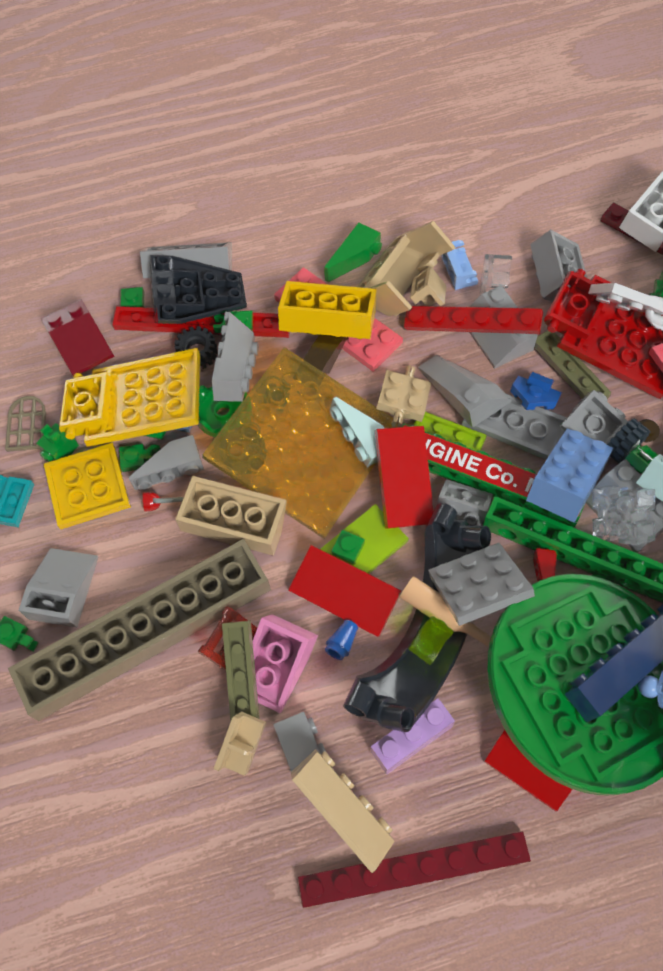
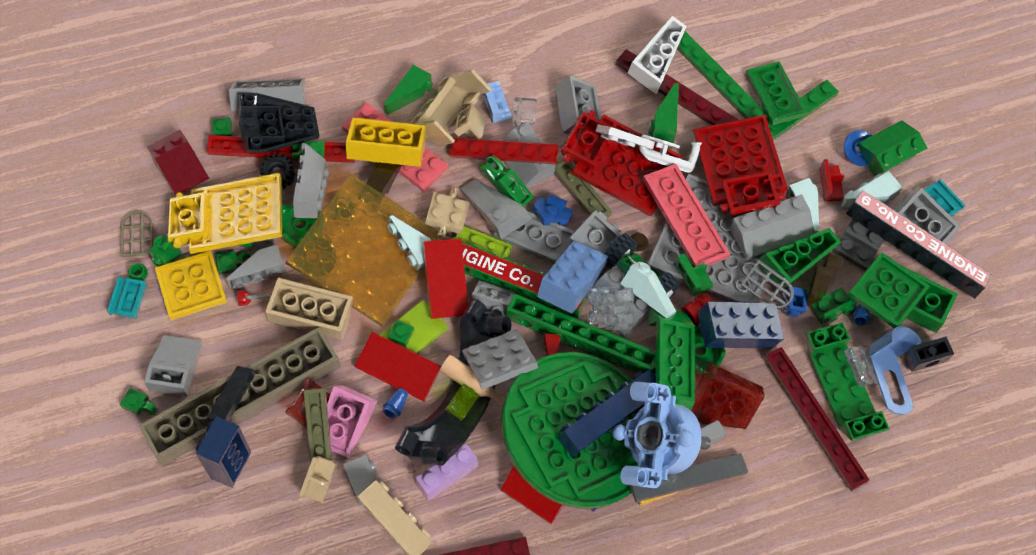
camera: 10 degrees left, 0 degrees up
(22, 464) = (138, 268): none -> green plate
(112, 707) = (223, 451): none -> dark blue brick
(128, 630) = (232, 393): none -> black slope
(476, 355) = (506, 180): none -> green plate

